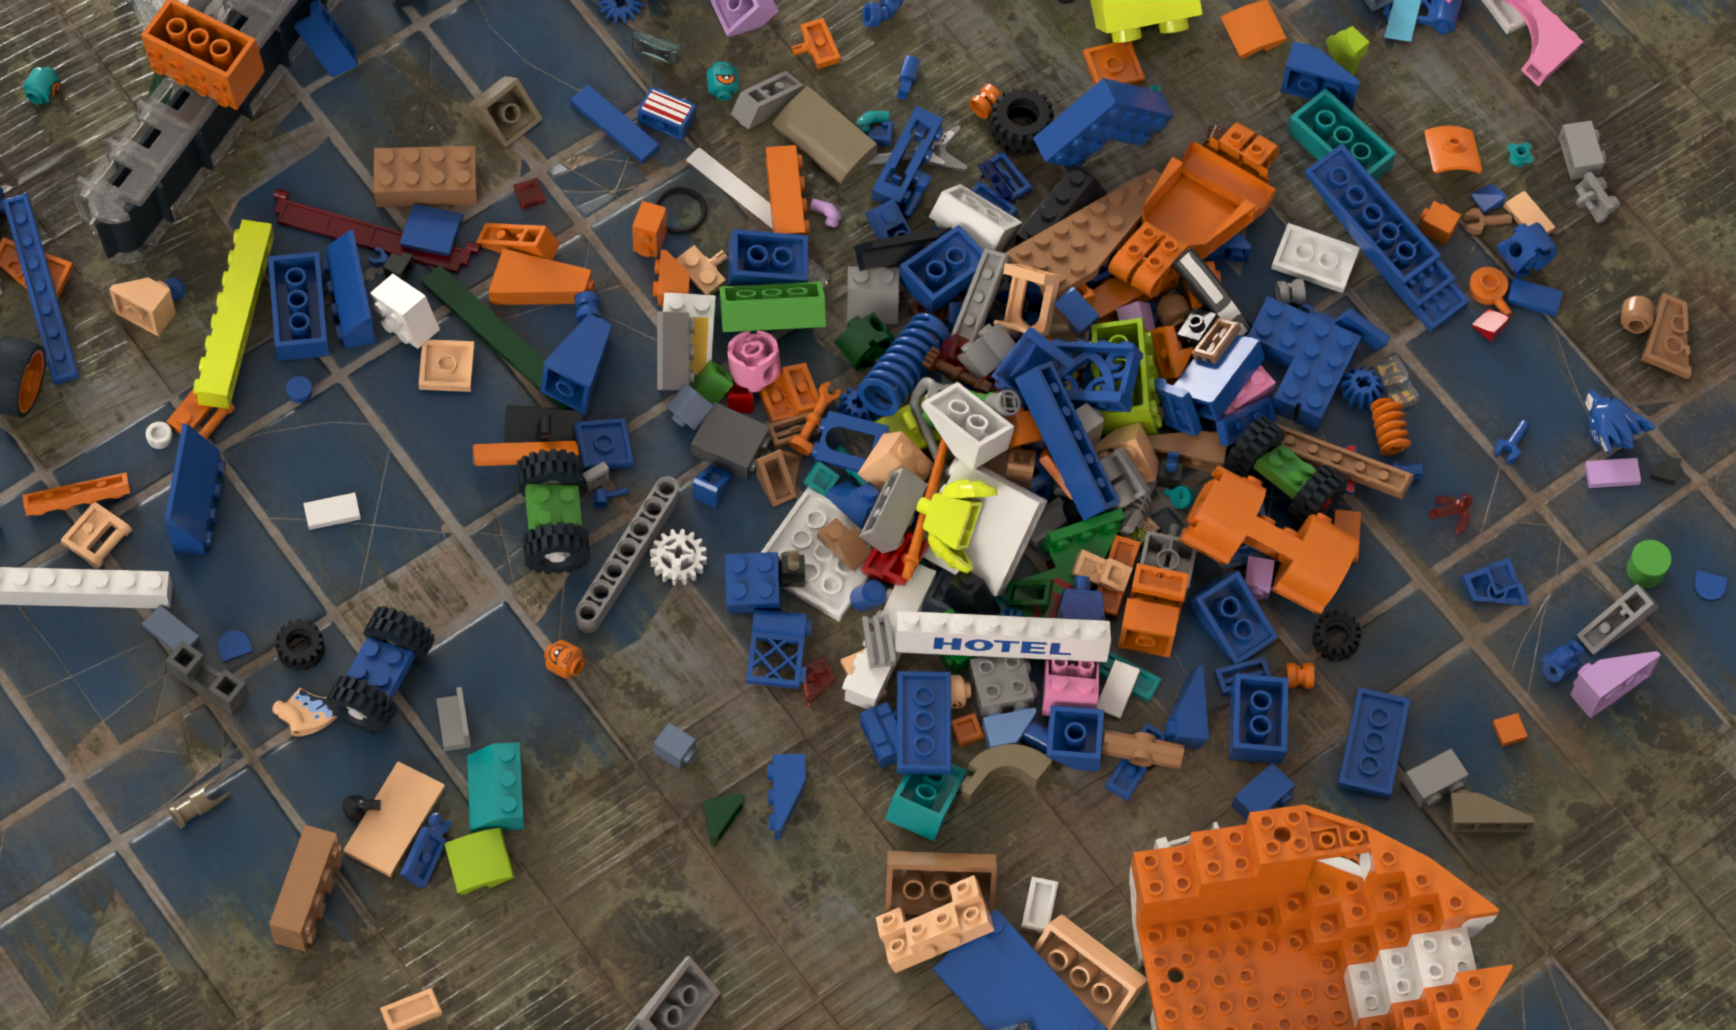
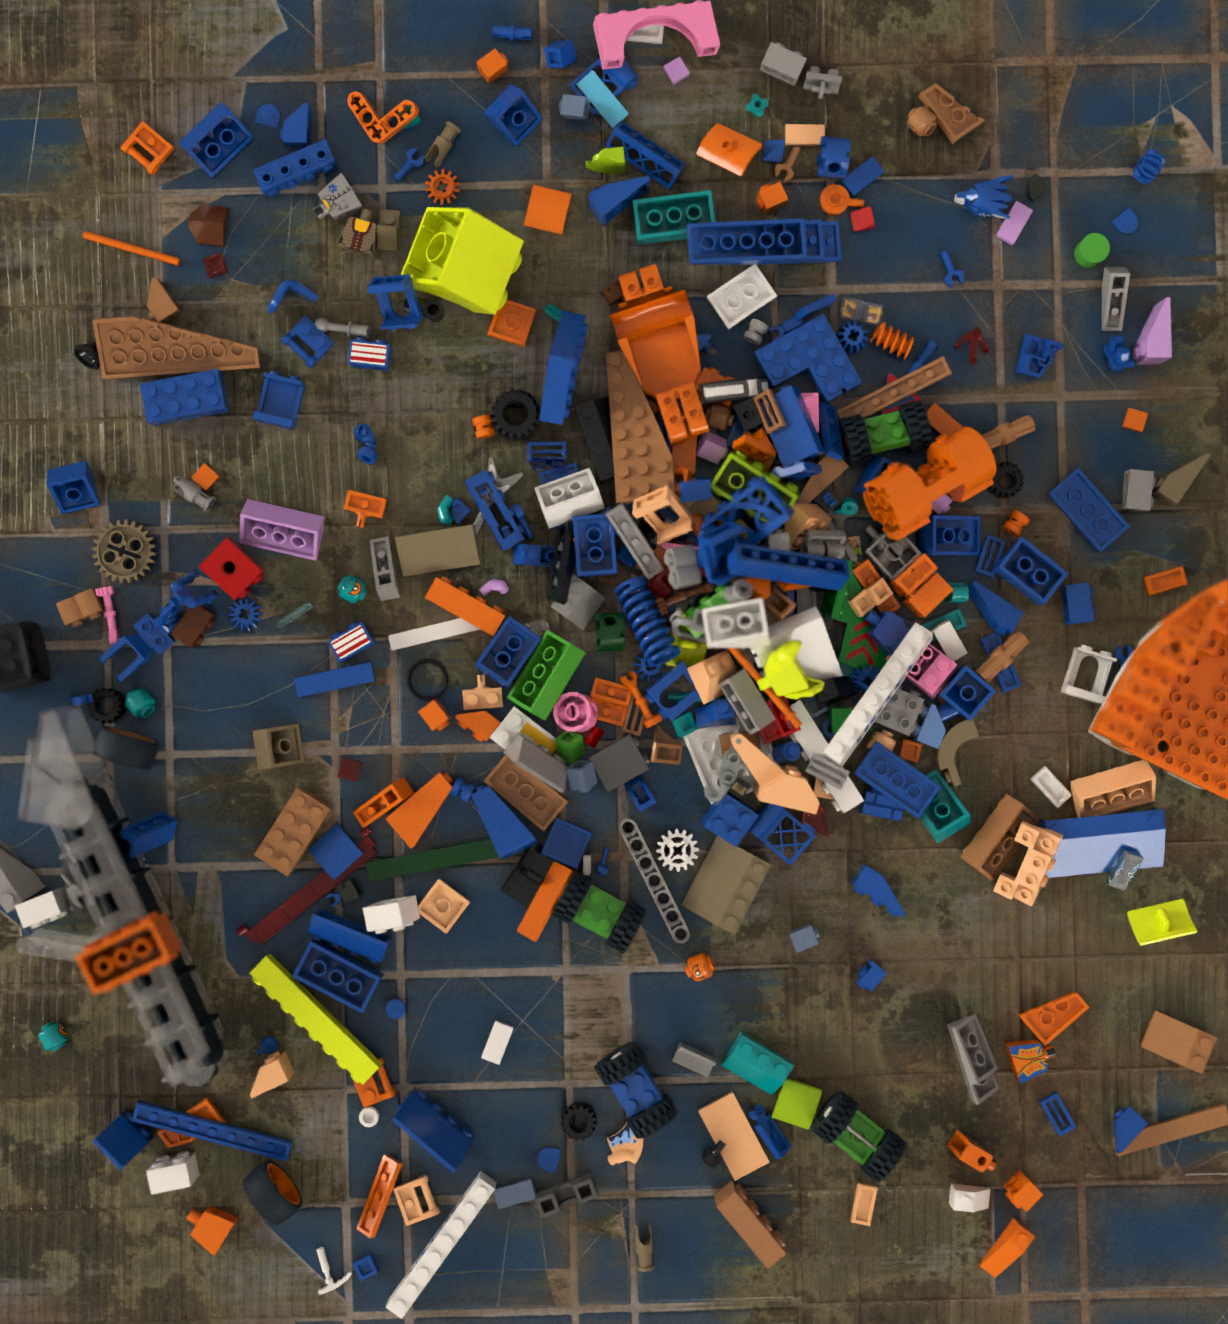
camera: 50 degrees left, 25 degrees up
(489, 938) = (858, 1136): none -> black plate
(630, 374) = (526, 793): none -> medium nougat tile
(676, 633) = (726, 885): none -> dark tan slope
(683, 844) = (870, 975): none -> blue brick
(721, 814) = (866, 940): dark green slope -> none
(826, 590) = (772, 783): none -> light nougat slope
(907, 75) = (429, 464): blue bar -> none
(1030, 595) = (858, 654): dark green slope -> none
(1175, 662) = (959, 594): none -> teal leg
(1384, 603) = (1009, 432): none -> medium nougat piece
(1389, 79) = (652, 152): none -> blue fence
(1490, 60) = (676, 70): none -> lavender tile

